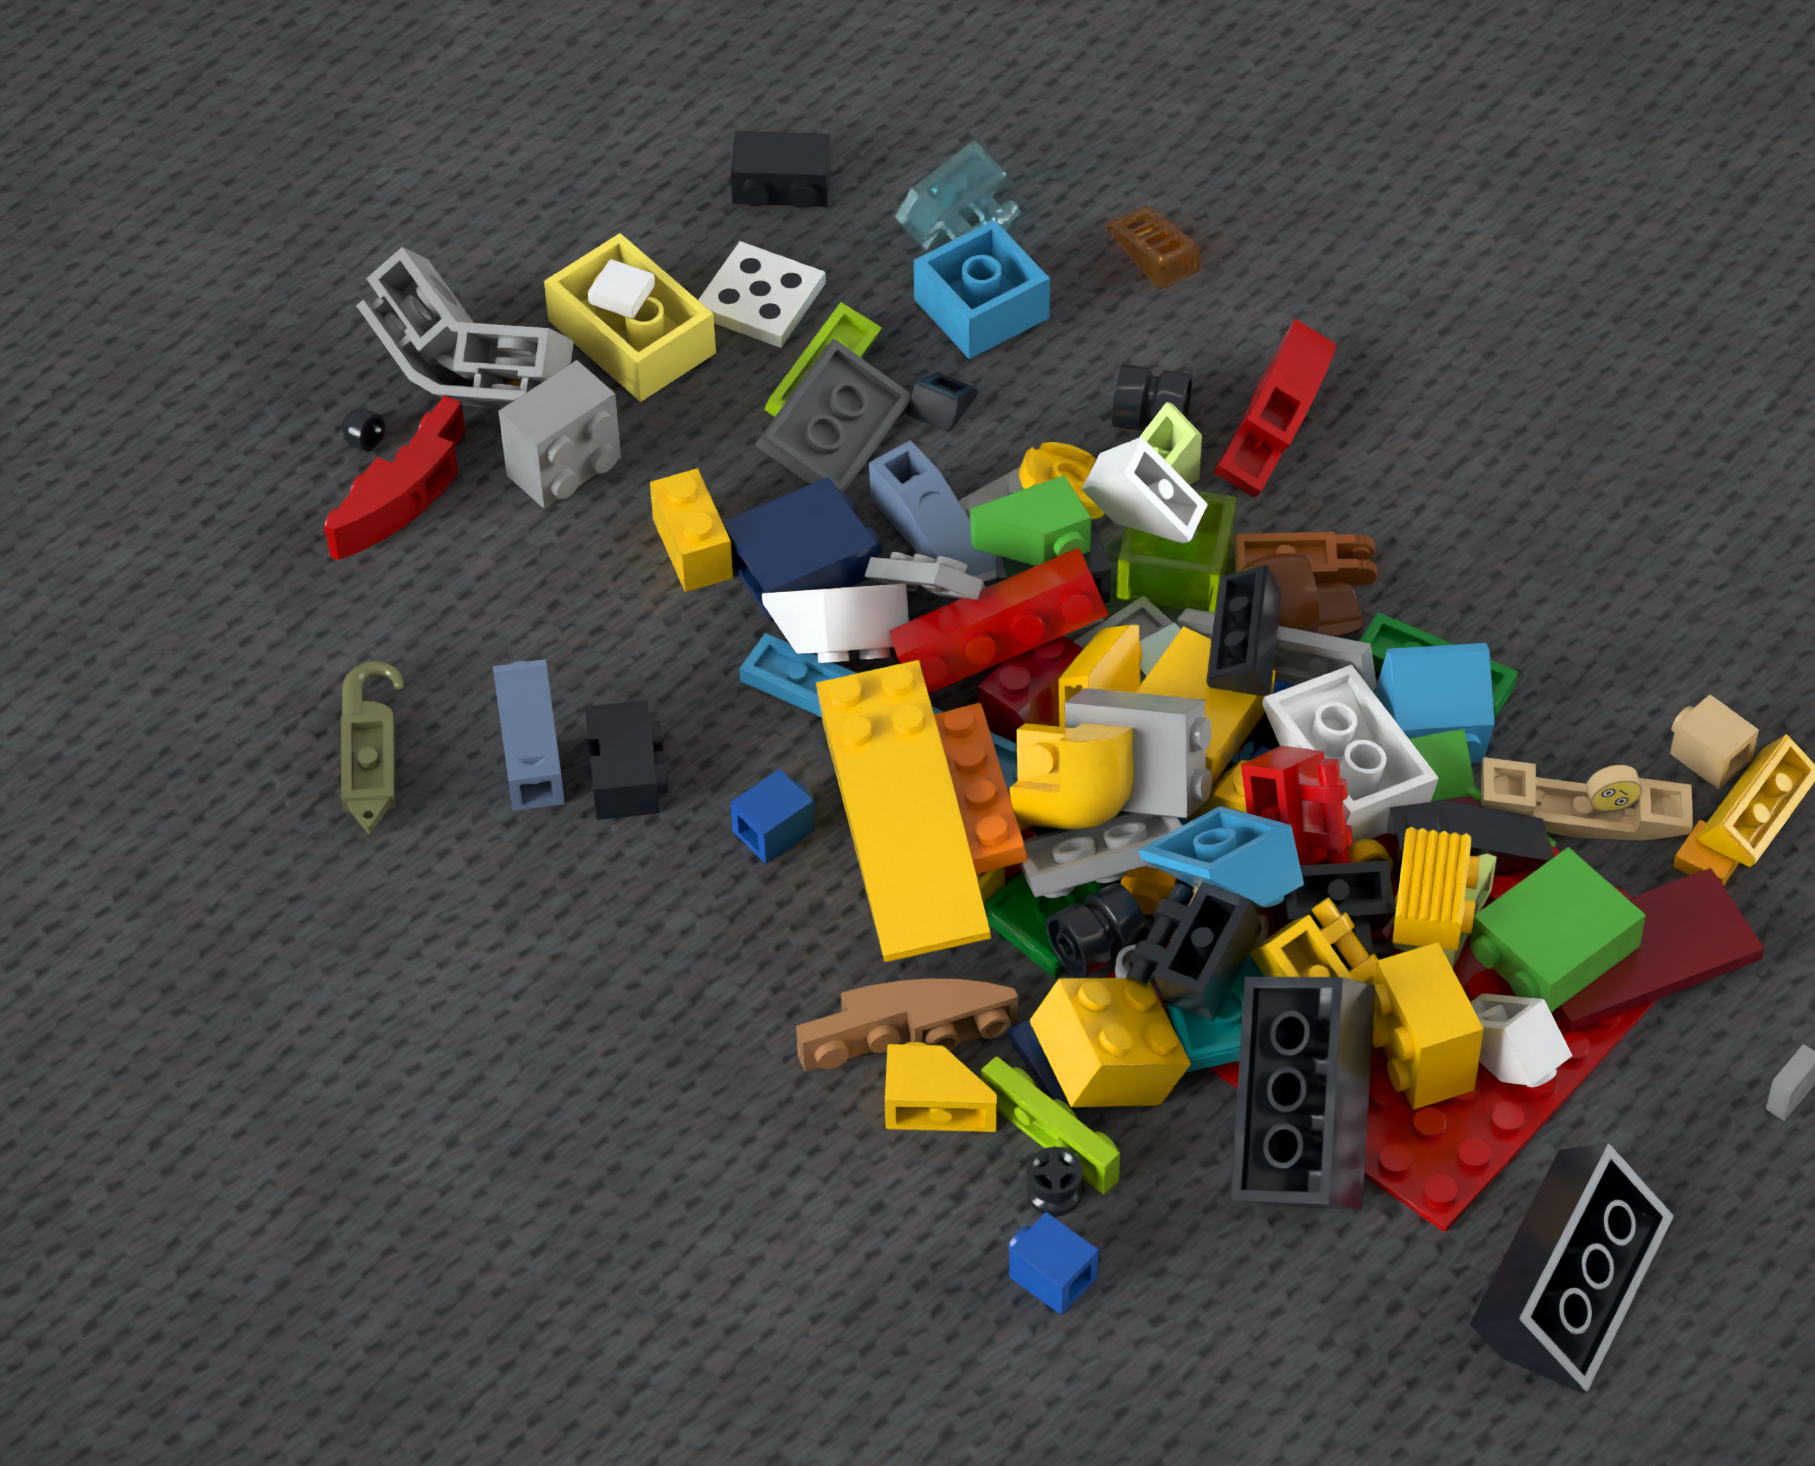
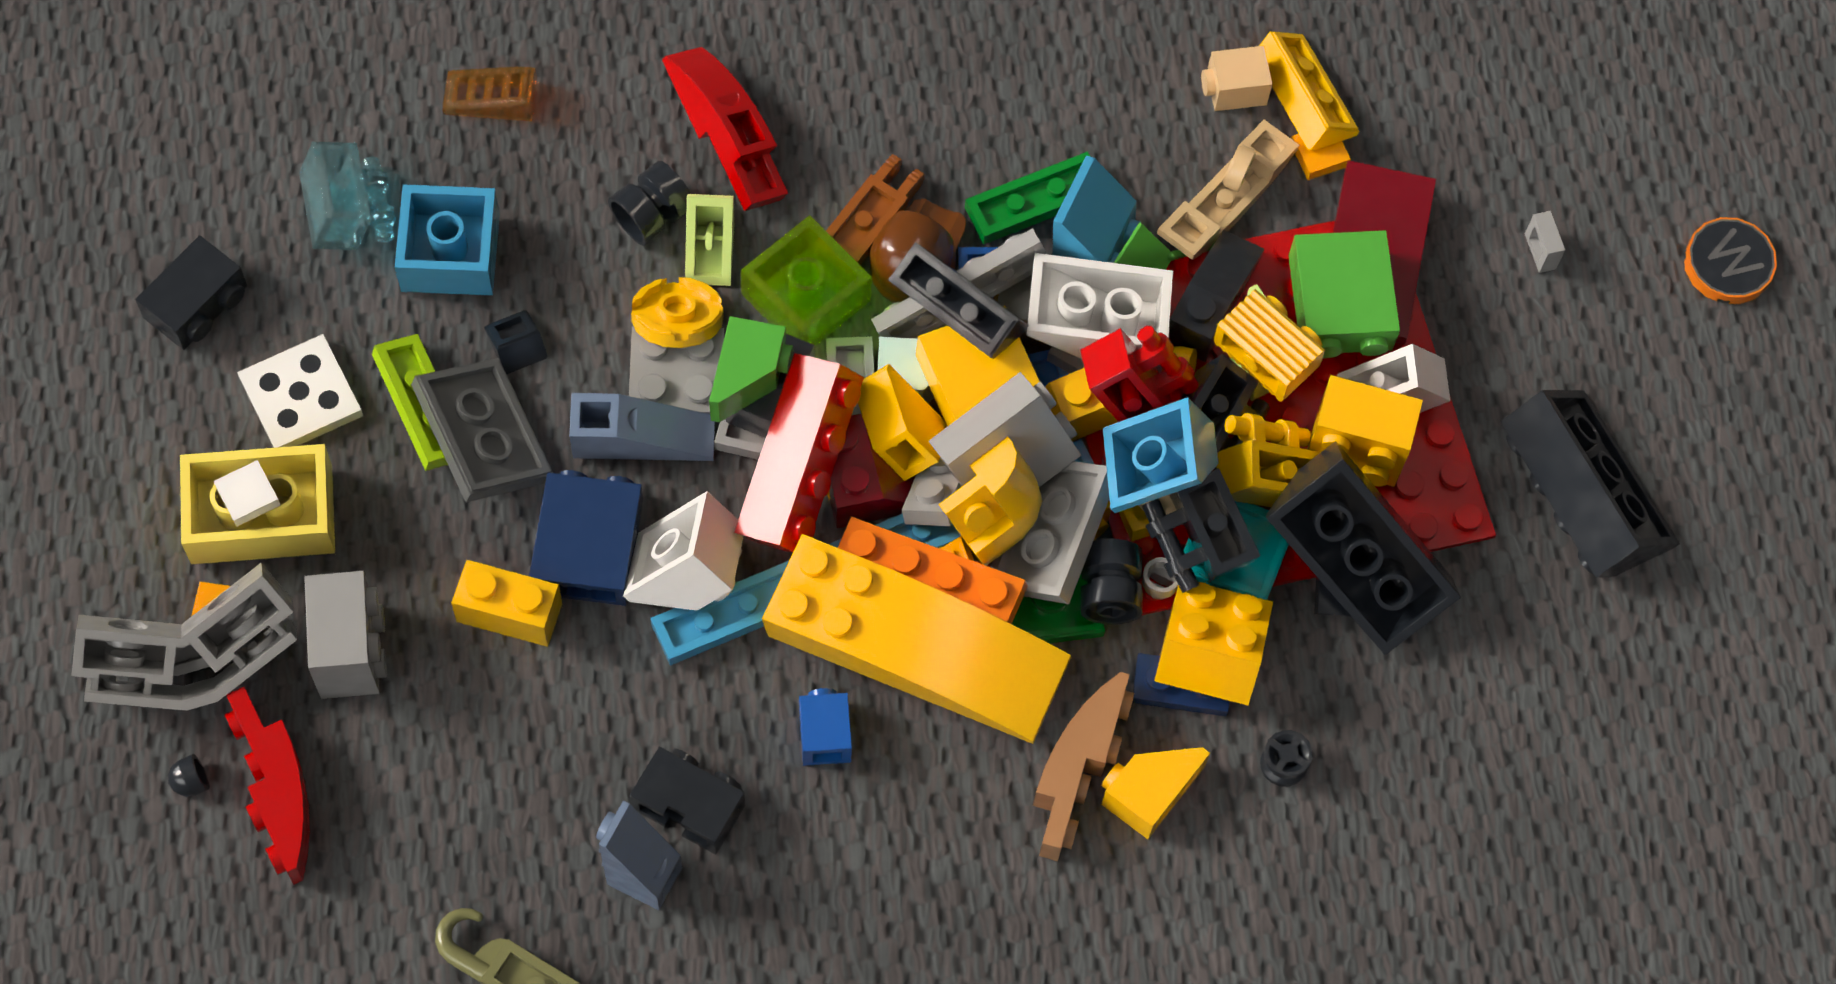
camera: 60 degrees left, 15 degrees up
(926, 575) = (710, 473): light grey plate -> none
(1052, 1123) = (1240, 725): lime plate -> none
(1052, 1262) = (1354, 807): blue brick -> none
(1144, 492) = (769, 273): white slope -> none

